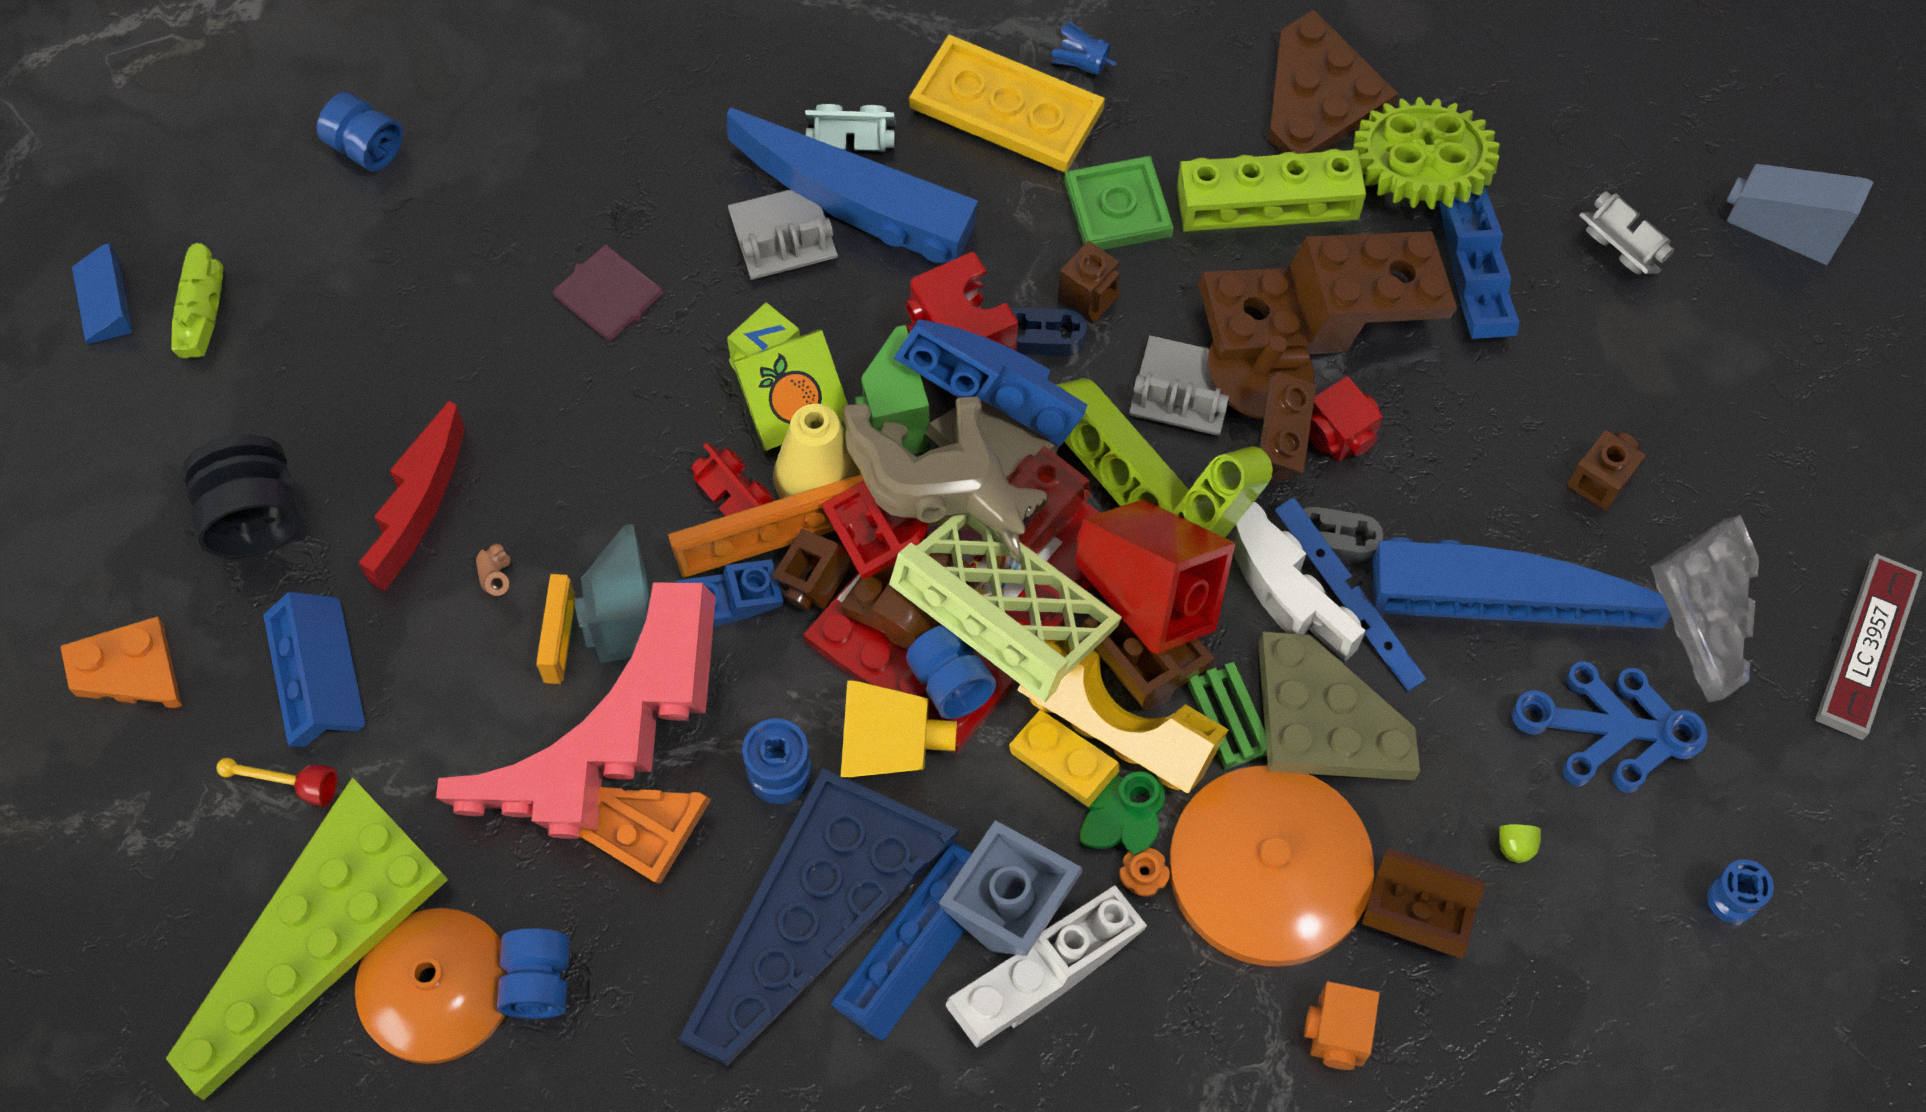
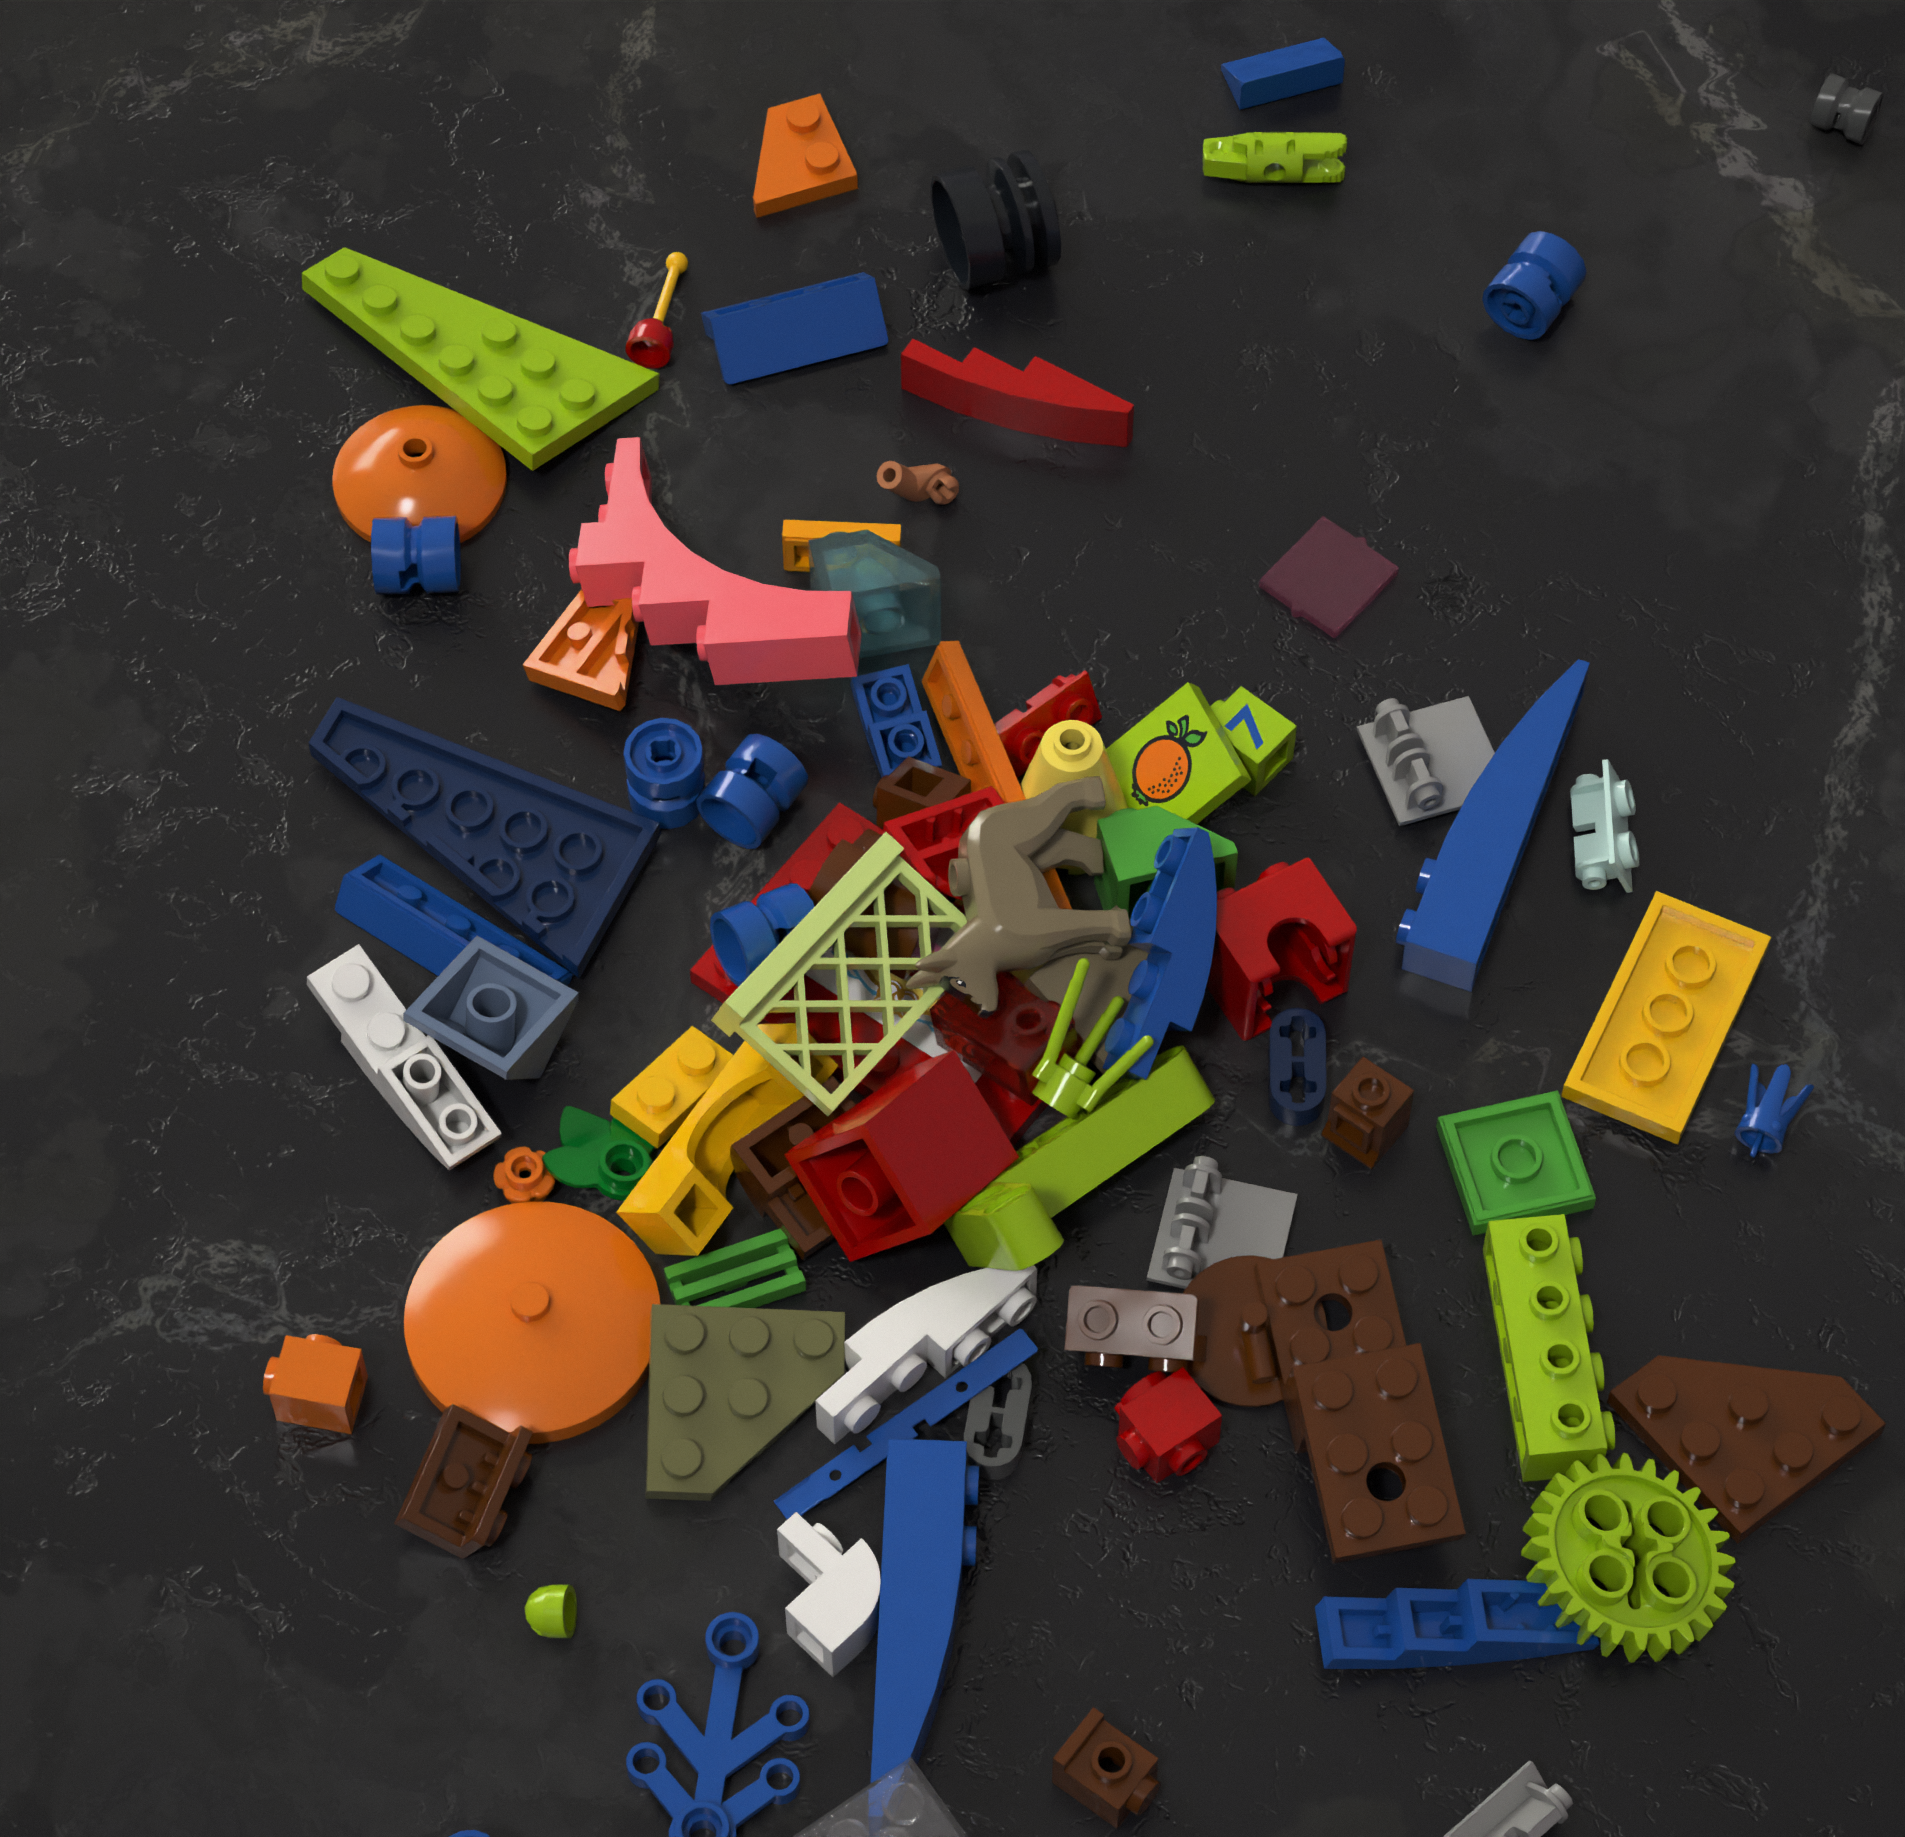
camera: 90 degrees right, 5 degrees down
(791, 692) = (752, 791): none -> blue wheel
(889, 731) = (697, 872): yellow torso -> none
(1086, 457) = (1067, 1083): none -> lime plant
(1497, 632) = (841, 1605): none -> white brick

